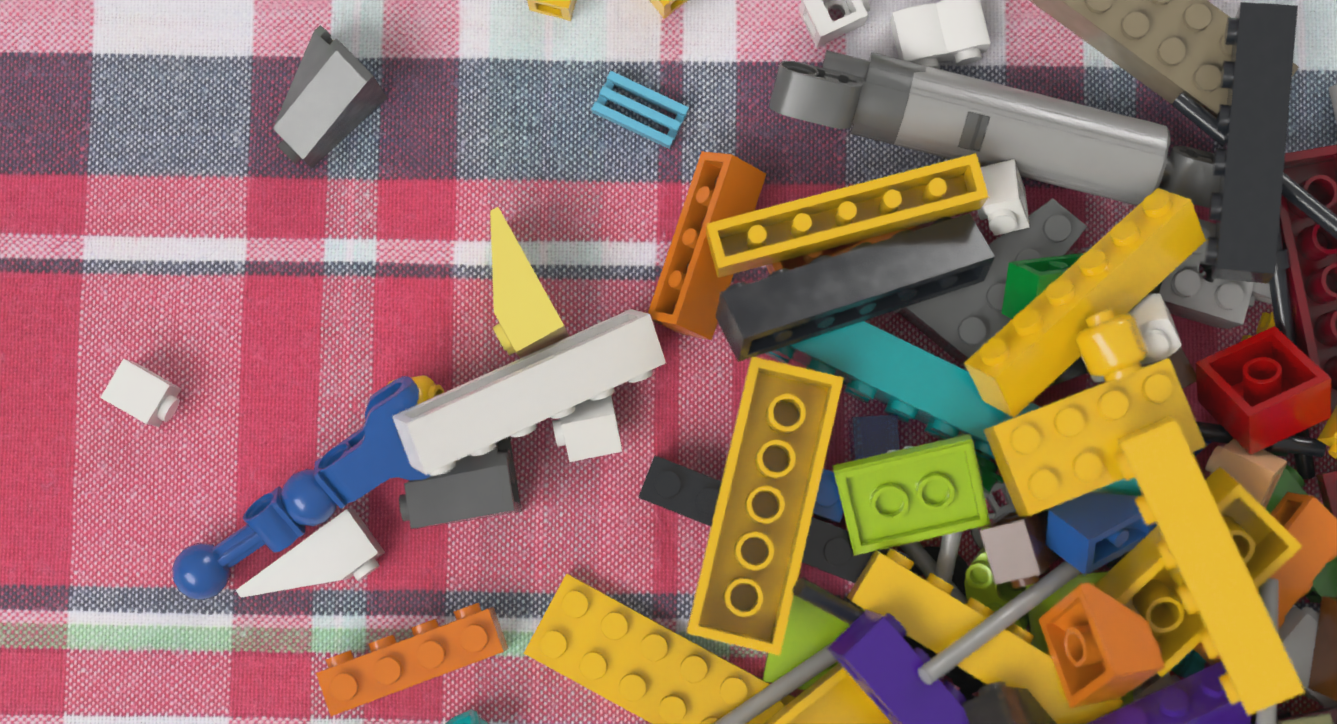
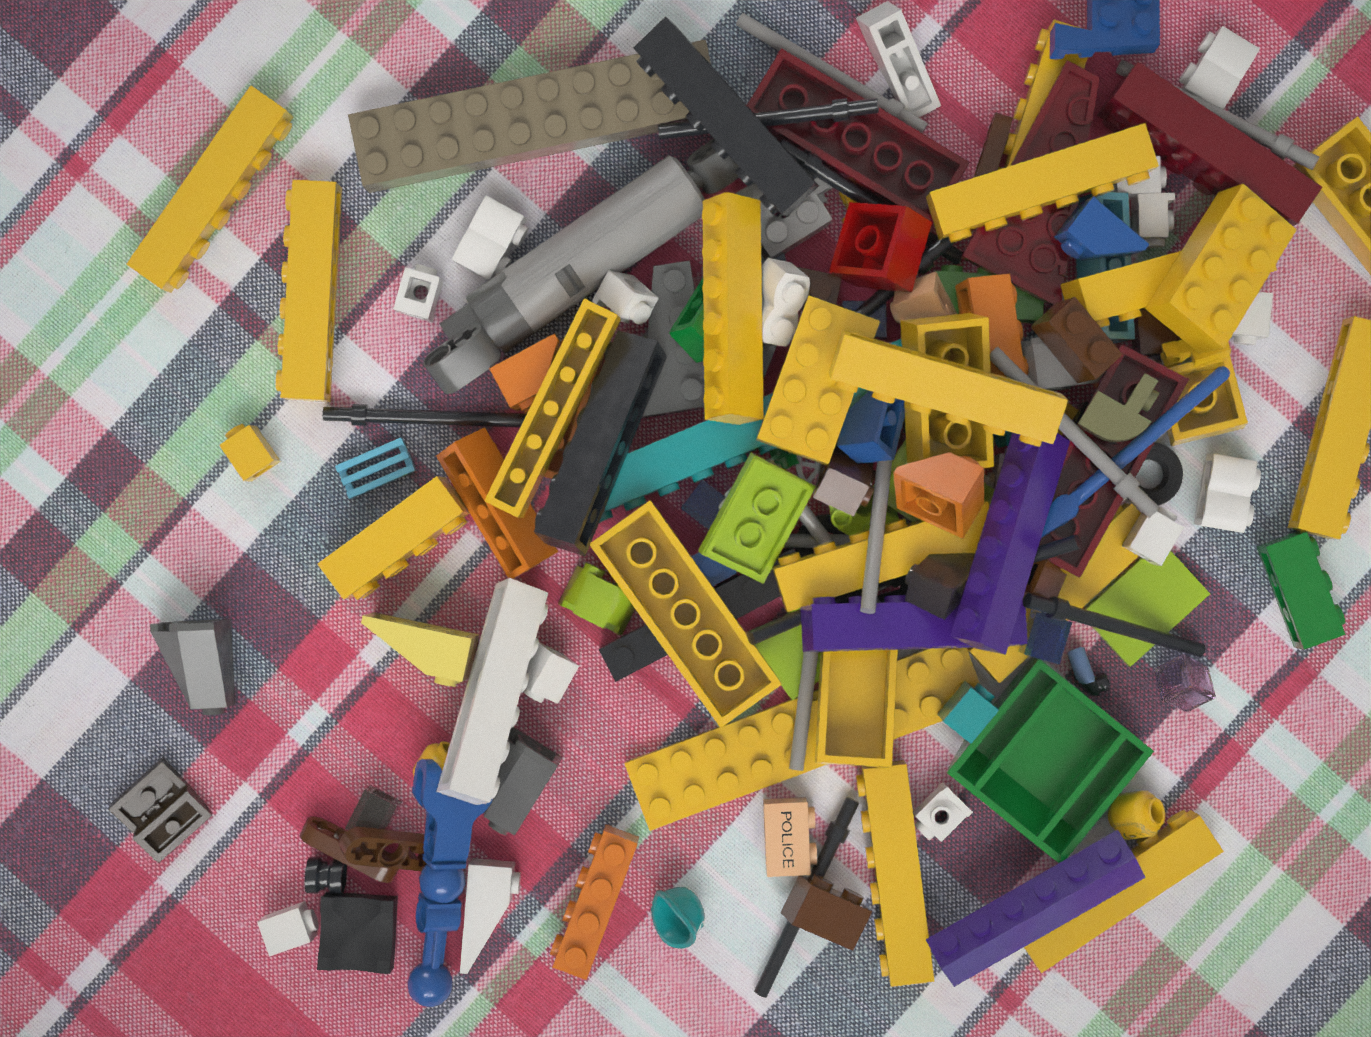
camera: 45 degrees left, 5 degrees up
(154, 183) = (160, 810): none -> slope
(192, 461) = (357, 932): none -> black brick
(219, 383) = (321, 875): none -> black wheel
(266, 387) = (326, 837): none -> reddish brown beam
(296, 403) = (376, 841): none -> reddish brown beam
(315, 381) = (374, 810): none -> clear smoke brick
(593, 179) = (394, 538): none -> yellow brick
(678, 56) = (360, 416): none -> black bar
(699, 416) = (597, 599): none -> lime cylinder
(851, 161) = (524, 372): none -> orange slope
(1111, 345) = (770, 323): yellow head -> none

